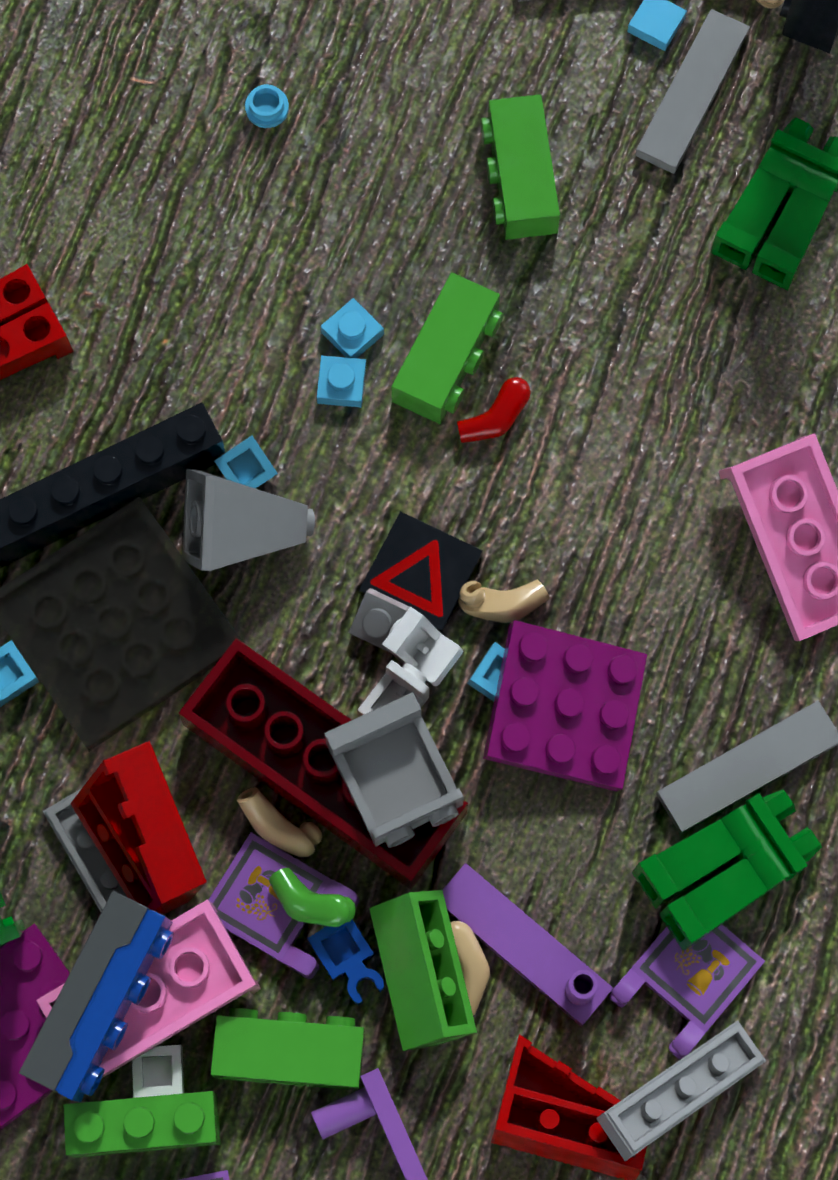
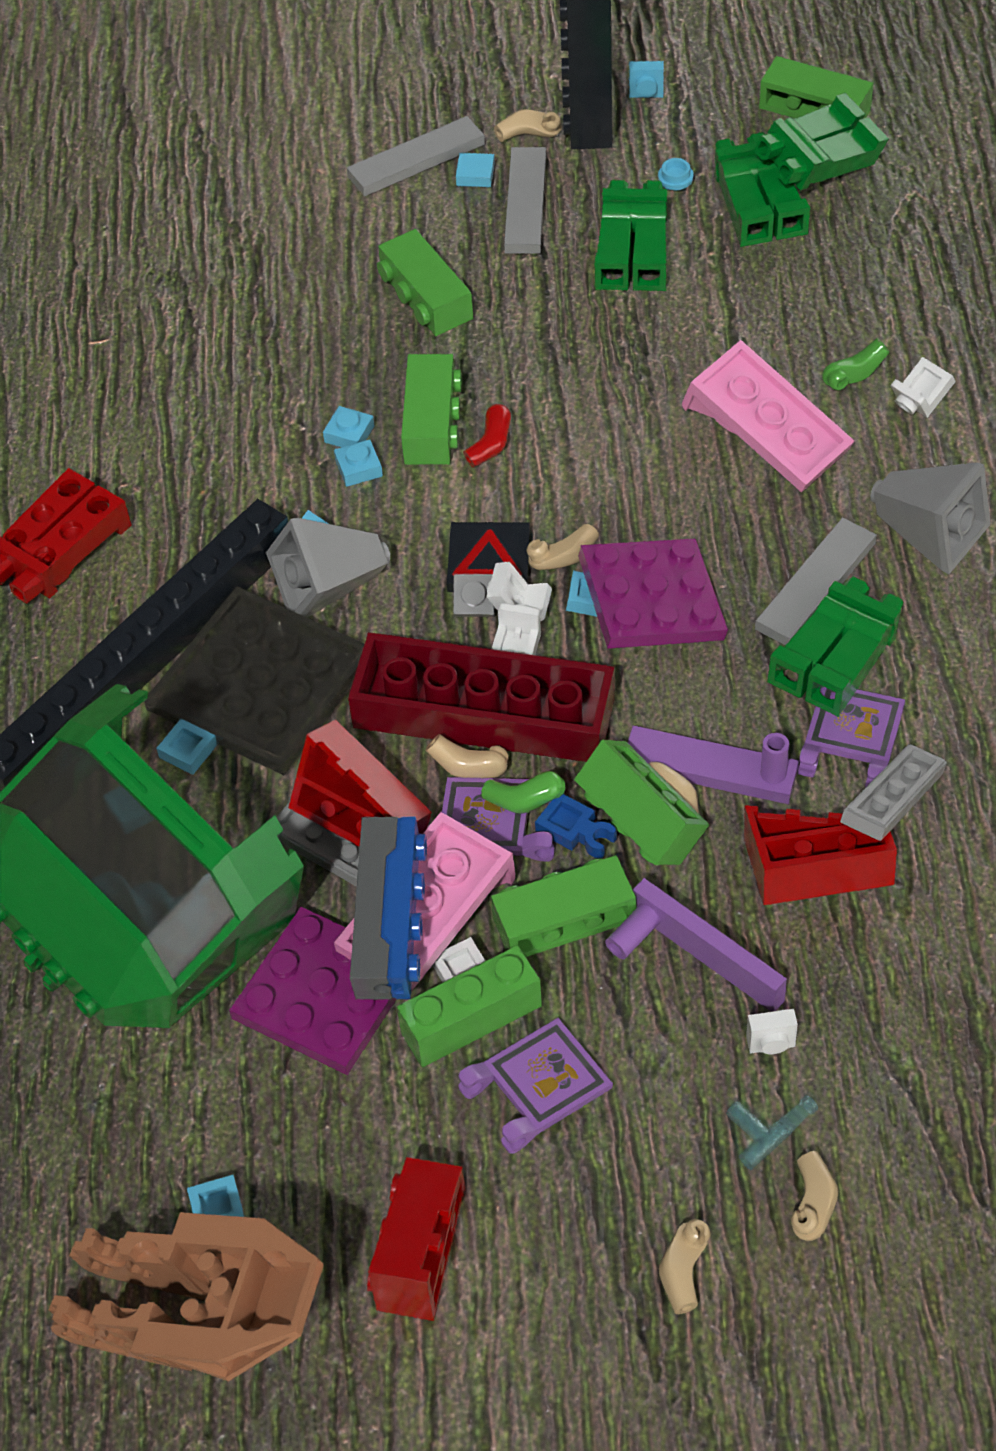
camera: 20 degrees left, 20 degrees down
(266, 106) = (206, 317): medium azure plate -> none
(394, 771) = (542, 661): light grey panel -> none

